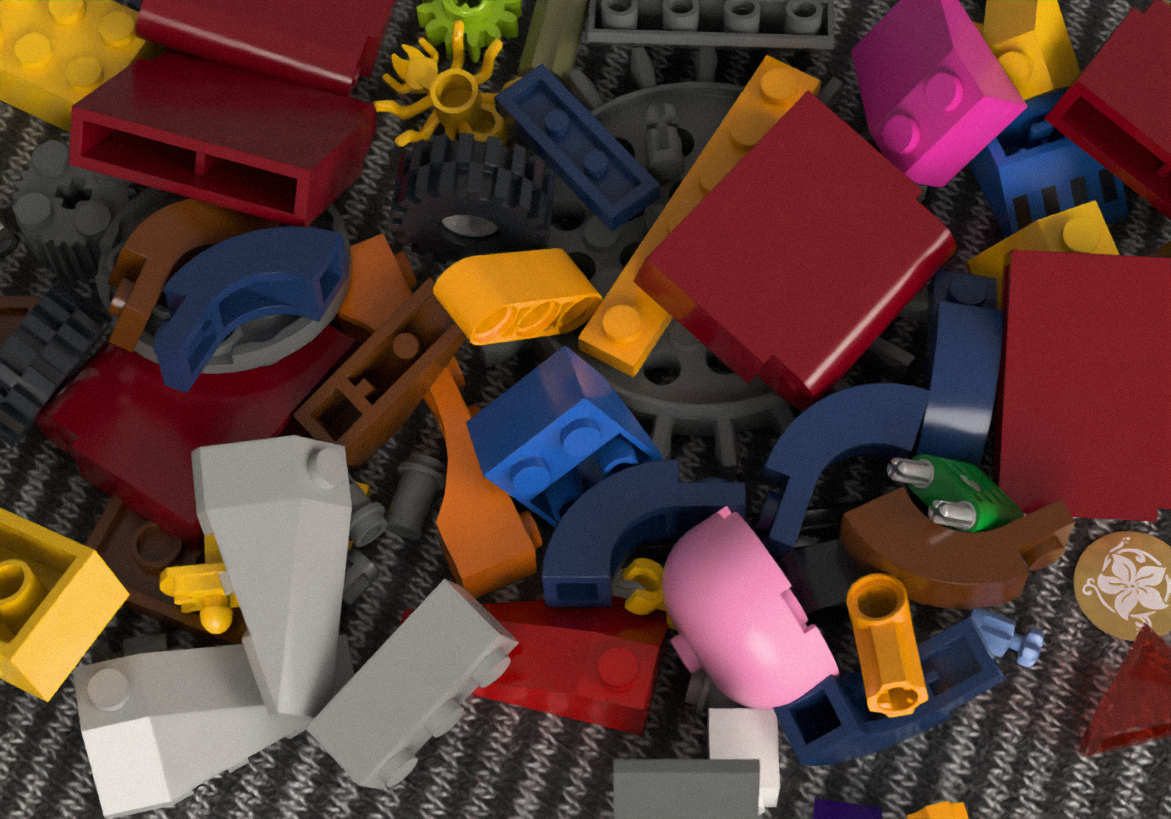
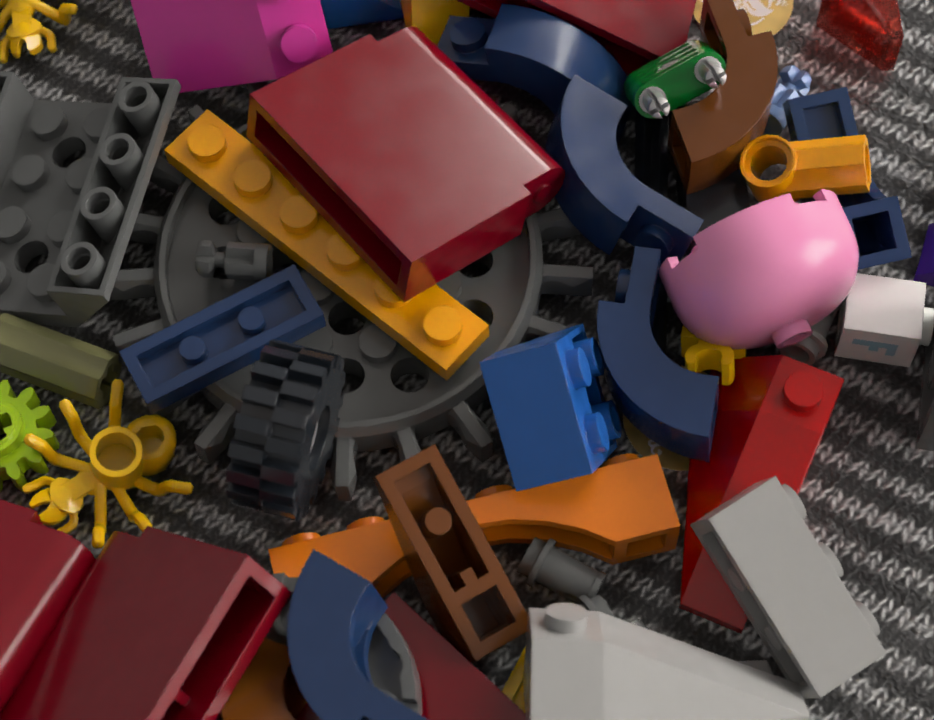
camera: 80 degrees left, 0 degrees up
(516, 295) = (410, 401): light orange beam -> none

